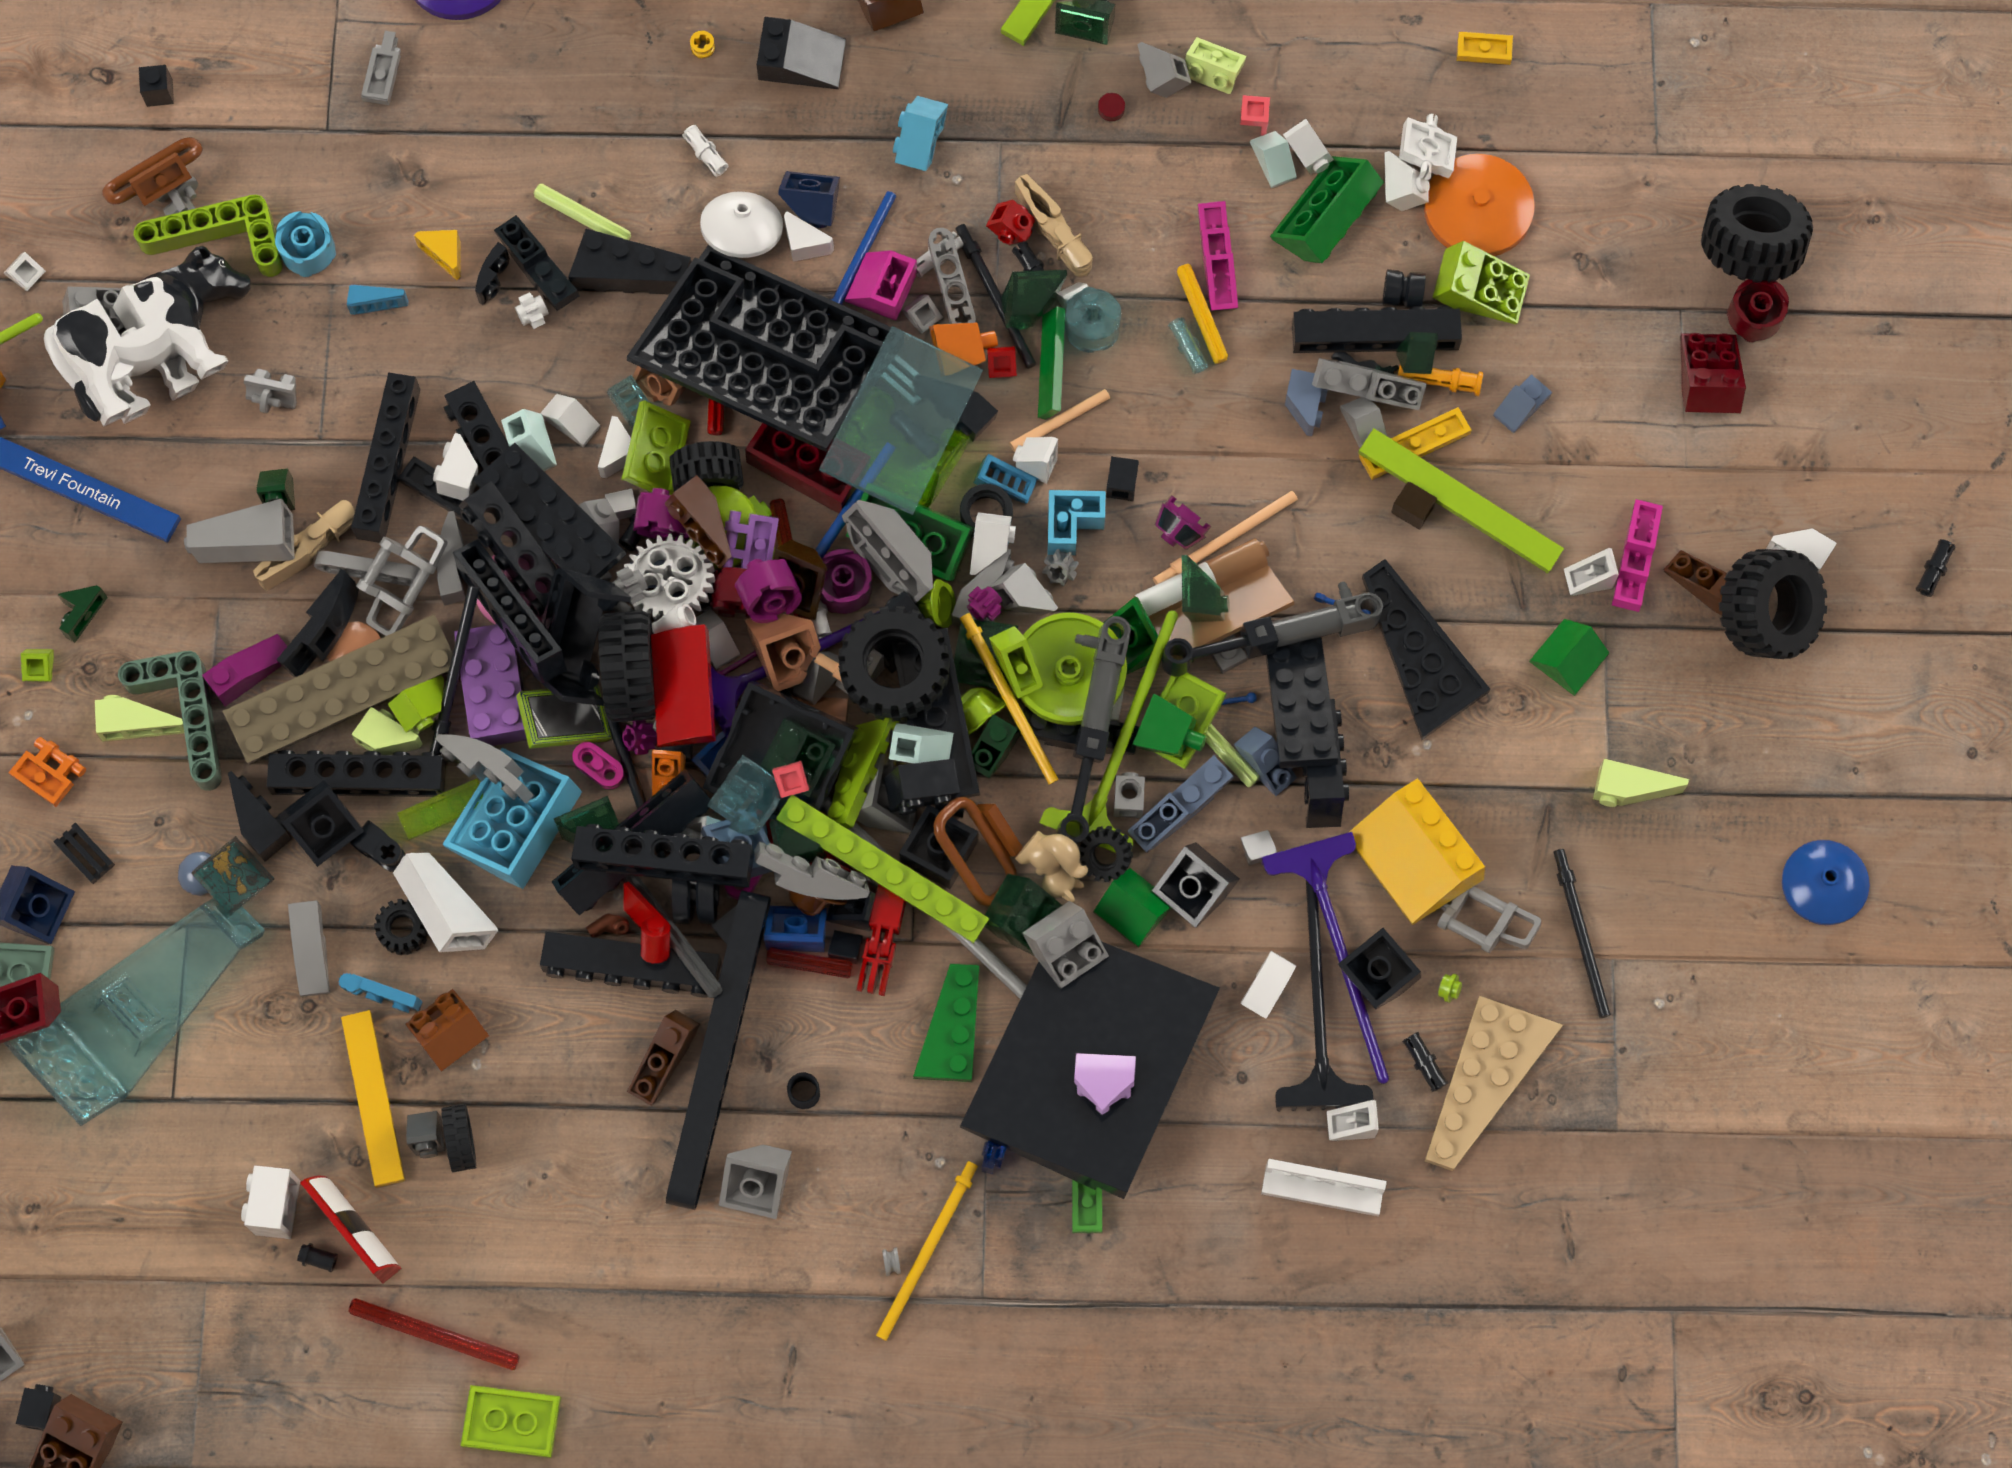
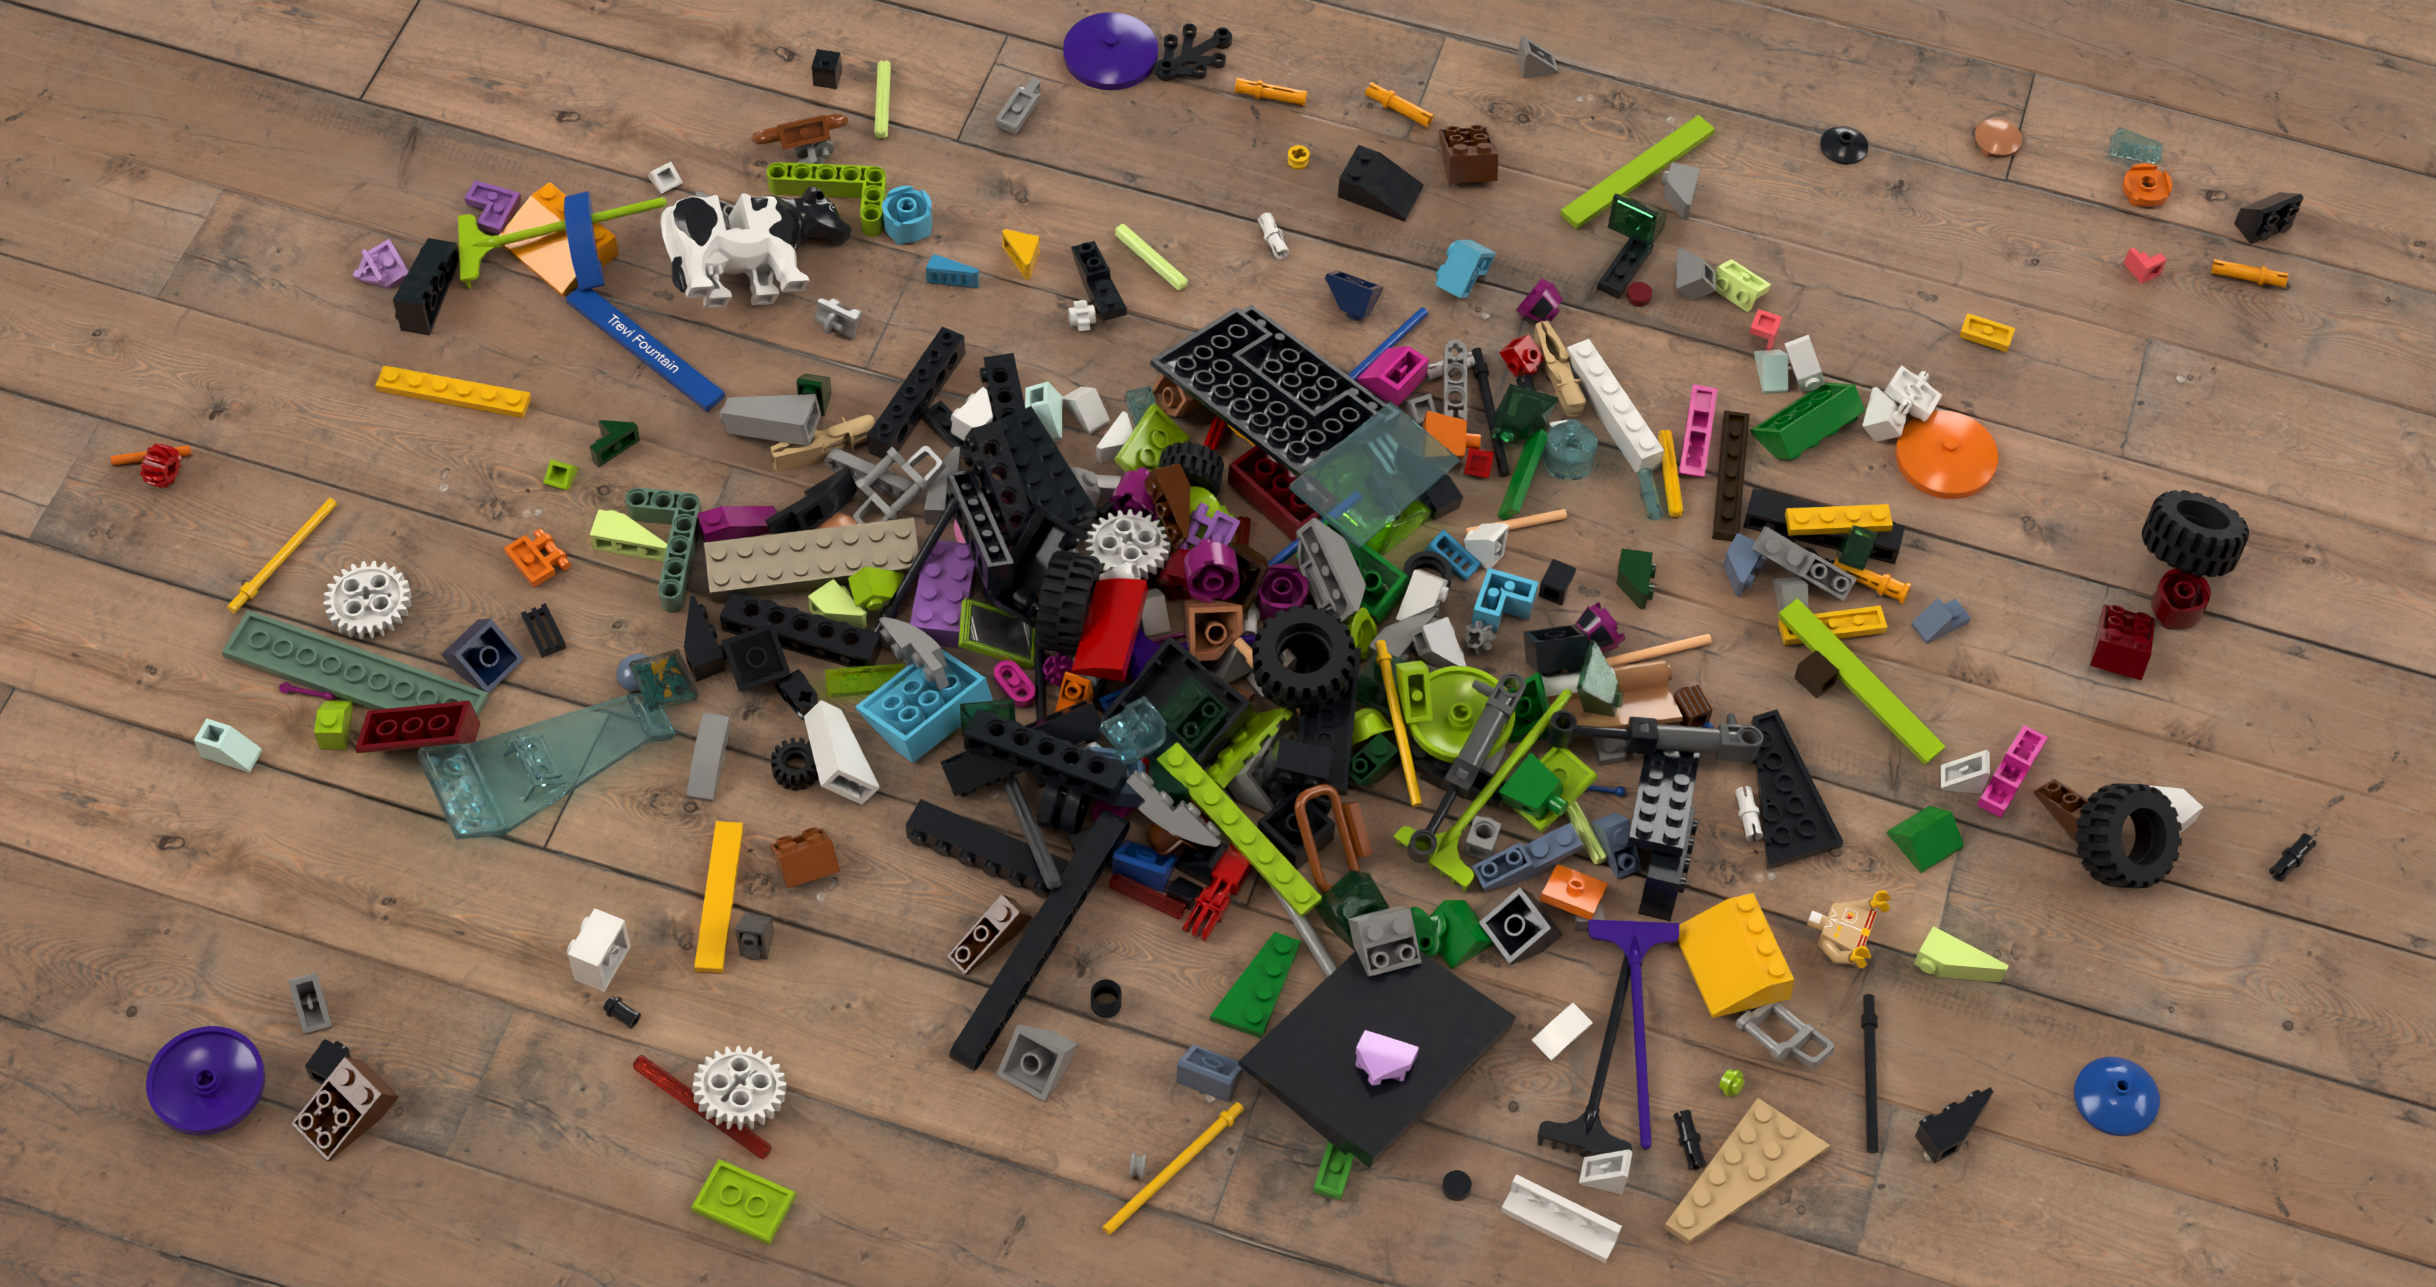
camera: 15 degrees right, 15 degrees down
(229, 103) = (882, 99): none -> yellowish green axle
(351, 1227) = (660, 993): slope -> none
(377, 992) = (757, 809): dark azure hinge -> none
(440, 1295) = (739, 1087): none -> white gear
(458, 1138) = (783, 944): black tyre -> none
(488, 281) = (1052, 283): black slope -> none
(608, 923) = (979, 813): copper arm -> none
(625, 265) = (1172, 301): black wedge -> none
(631, 583) = (1096, 537): light grey gear -> none
(654, 927) = (1015, 818): red door -> none
(741, 224) = (1285, 298): white dish -> none
(790, 779) = (1180, 727): coral tile -> none
(805, 239) = (1338, 324): white slope -> none
(919, 744) = (1304, 730): light aqua slope -> none
(931, 1136) = (1209, 1072): none -> sand blue slope
(984, 603) = (1401, 640): magenta gear -> none
(993, 1157) = (1260, 1102): clear blue plate -> none
(1012, 154) = (1540, 303): none -> magenta cone
(1057, 859) = (1393, 860): tan animal -> none
(1087, 77) = (1625, 266): none -> black tile
(1103, 914) = (1428, 928): none -> green plate
(1117, 841) = (1429, 872): black tyre -> none
(1124, 255) = (1614, 408): none -> white brick
(1145, 561) = (1556, 649): none -> black brick
(1199, 448) = (1634, 575): none -> dark green slope
(1211, 1181) = (1456, 1185): none -> black tile
(1237, 828) = (1573, 892): none -> orange plate
(1265, 297) = (1730, 475): none -> dark brown tile
(1299, 581) = (1693, 706): none -> reddish brown brick
(1380, 969) = (1672, 1045): black slope -> none
(1387, 684) = (1749, 814): none -> white pin
(1391, 323) = (1837, 519): none -> yellow plate
(1405, 289) = (1855, 494): black wheel -> none
(1480, 283) = (1931, 514): lime slope -> none
(1520, 786) = (1848, 928): none -> tan torso
(1676, 972) = (1947, 1131): none -> black slope

